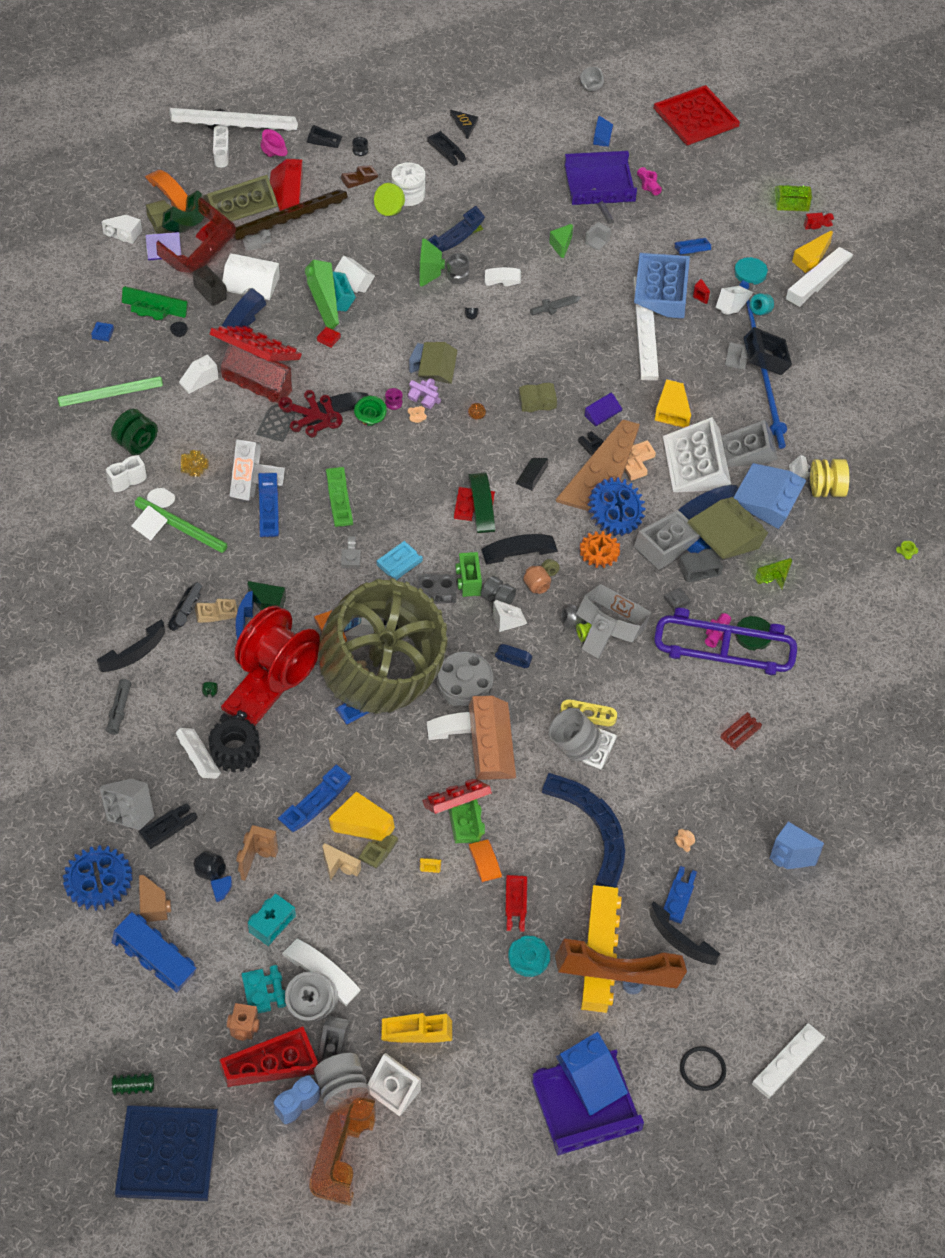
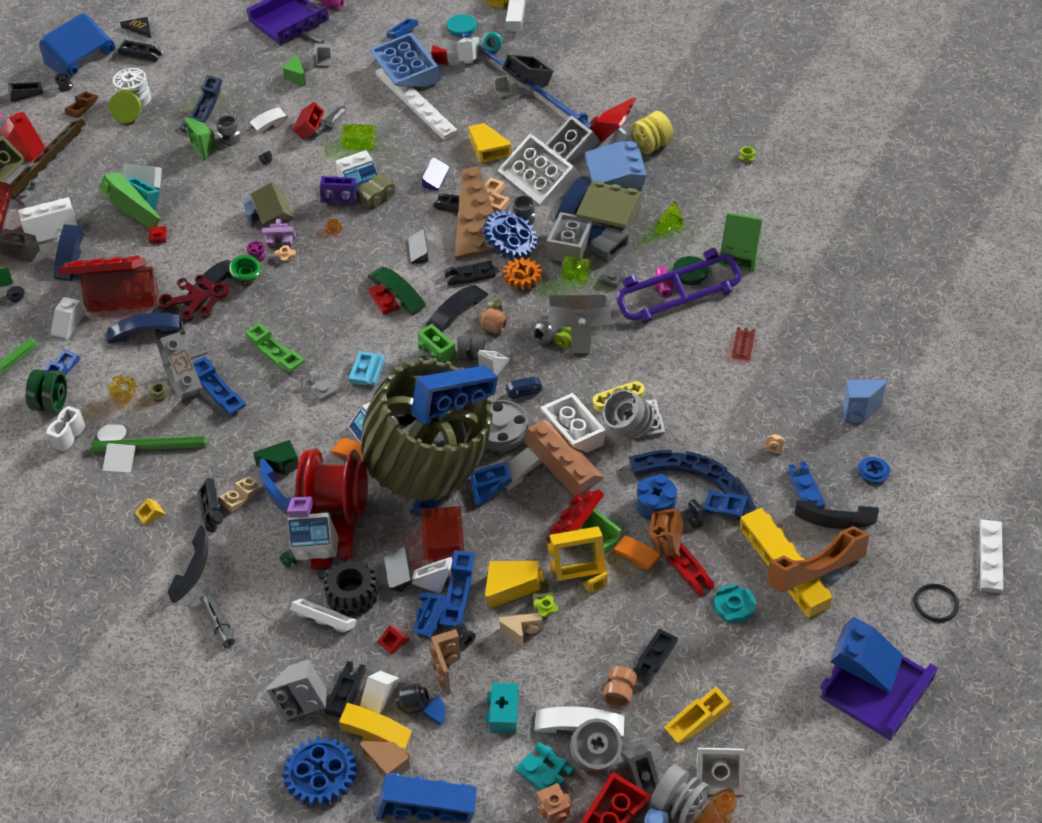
camera: 30 degrees left, 5 degrees down
(139, 583) = (149, 511): none -> yellow slope
(163, 870) = (373, 726): none -> yellow slope
(167, 415) = (64, 362): none -> blue slope
(190, 842) = (378, 691): none -> white slope
(222, 478) = (158, 391): none -> olive plate
(233, 652) = (300, 507): none -> medium lavender plate
(233, 683) = (313, 536): none -> slope
(236, 808) = (393, 639): none -> red slope
(255, 414) = (142, 323): none -> dark blue slope
(276, 805) = (428, 616): none -> blue wing
(283, 752) = (398, 569): none -> slope
(287, 840) = (466, 637): none -> black wheel
(306, 774) = (432, 575): none -> white slope
(342, 743) = (441, 532): none -> clear red brick
(368, 863) = (546, 611): none -> lime plate
(376, 960) = (619, 686): none -> nougat wheel
(393, 112) = (72, 43): none -> blue windscreen
(410, 626) = (451, 390): none -> blue wedge
(415, 722) = (490, 481): none -> blue wing
(425, 956) = (655, 654): none -> black hinge
(436, 817) = (573, 538): none -> yellow window
(504, 378) = (338, 186): none -> dark purple brick
(520, 858) = (666, 532): none -> dark orange piece
(523, 714) = (575, 423): none -> white slope
(533, 296) = (308, 120): none -> red brick
(536, 368) = (357, 166): none -> slope
(539, 823) = (655, 494): none -> blue brick
(557, 522) = (469, 273): none -> black hinge
(565, 335) = (358, 136): none -> clear neon green brick
(567, 856) = (698, 511): none -> black arm
(592, 865) = (725, 504): none -> blue slope
(650, 488) = (525, 207): none -> dark grey wheel
(651, 574) = (575, 269): none -> clear neon green wheel
(762, 917) = (878, 465): none -> blue gear
(802, 443) = (611, 120): none -> red wedge
(815, 633) = (741, 240): none -> bright green slope

